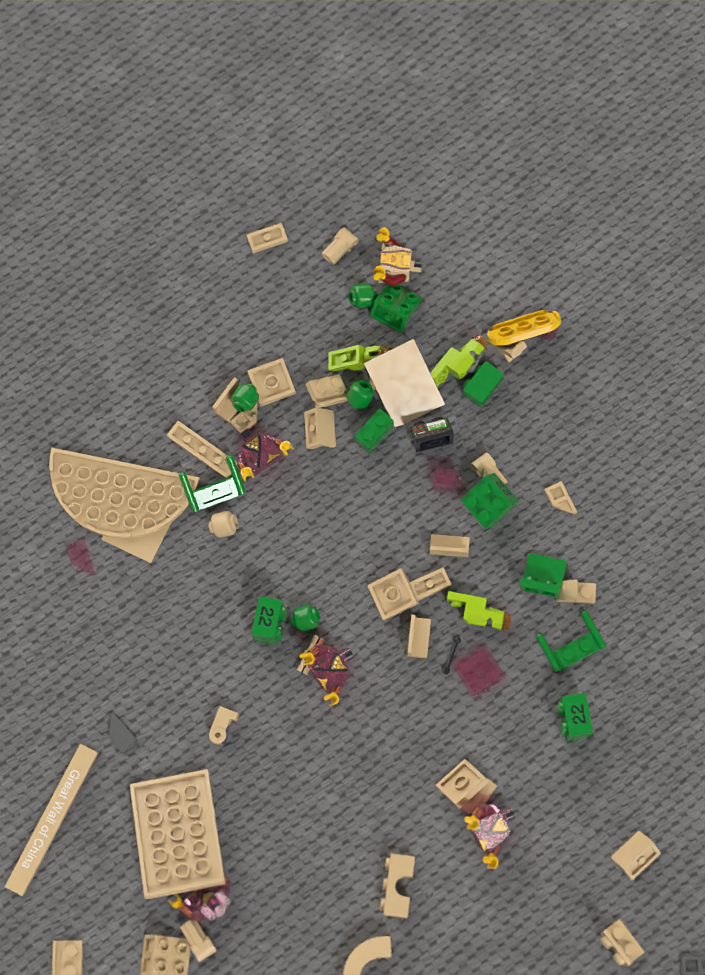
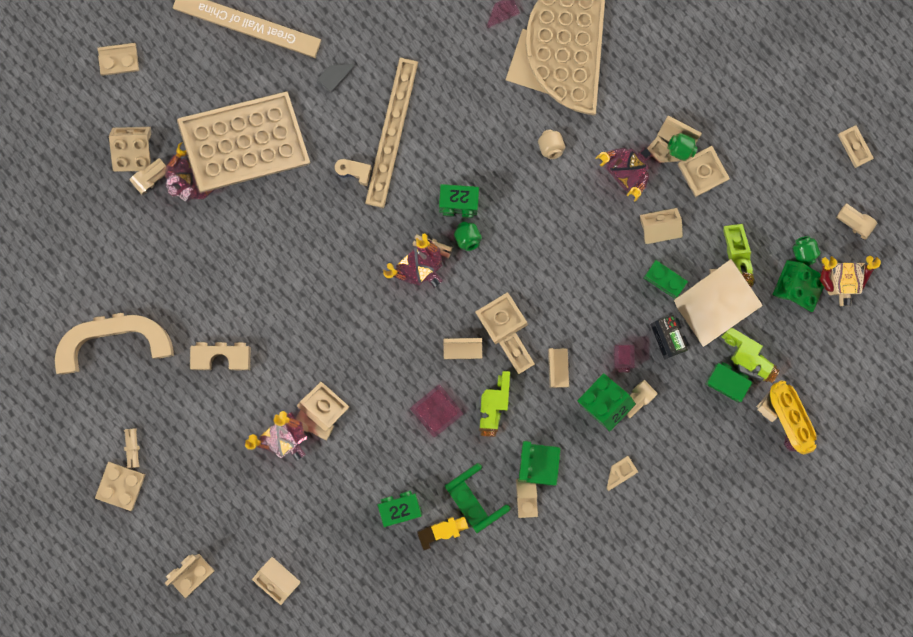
camera: 75 degrees right, 10 degrees up
(188, 683) = (391, 132): none -> tan tile
(200, 449) = (624, 113): tan plate -> none
(215, 492) = (583, 132): plate -> none
(327, 391) = (700, 228): tan plate -> none
(360, 394) = (701, 261): green head -> none
(445, 670) = (433, 378): black hinge -> none
(601, 680) = (441, 530): none -> yellow hips

